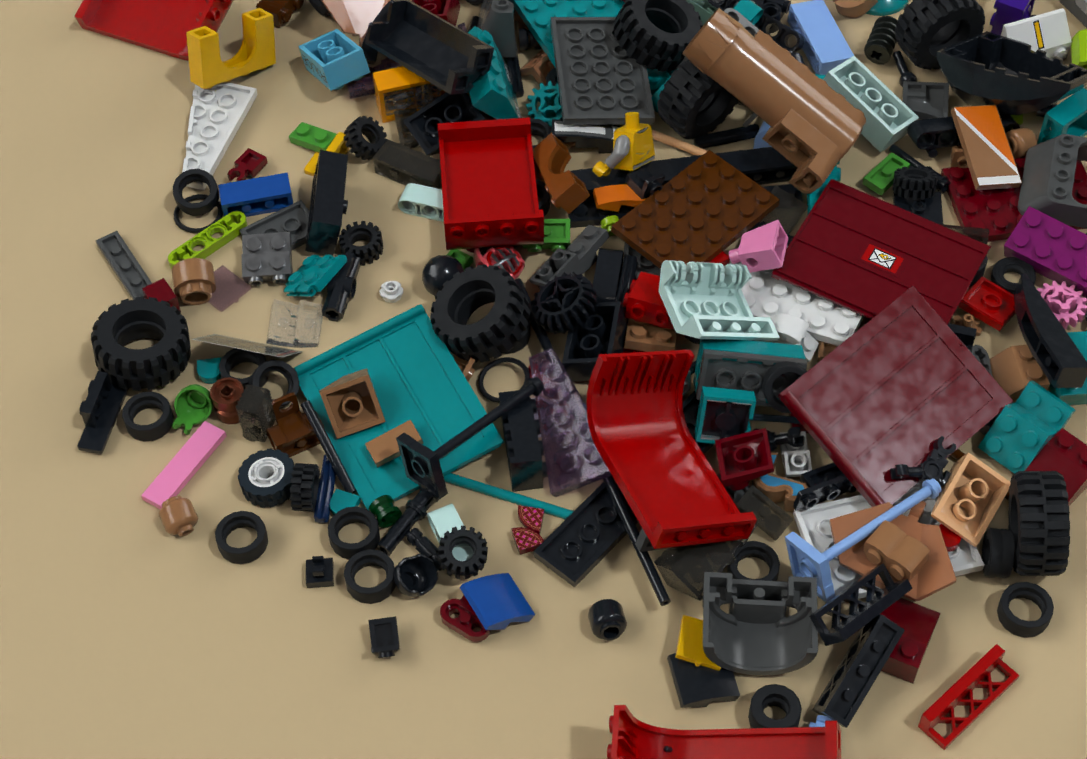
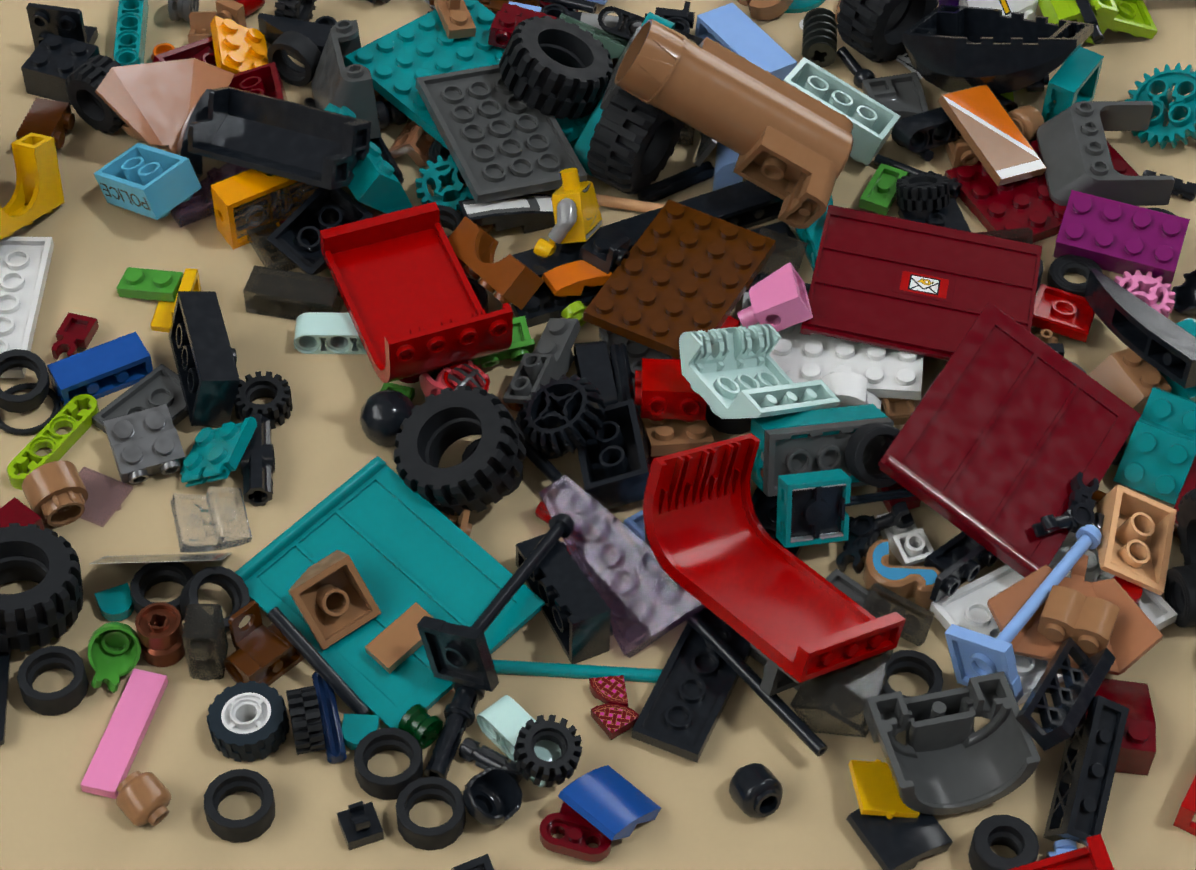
camera: 20 degrees left, 5 degrees down
(356, 141) = (223, 269): black tyre -> none
(391, 291) = (324, 452): white plate -> none
(493, 363) = (514, 502): black tyre -> none
(744, 458) = (854, 553): dark red slope -> none

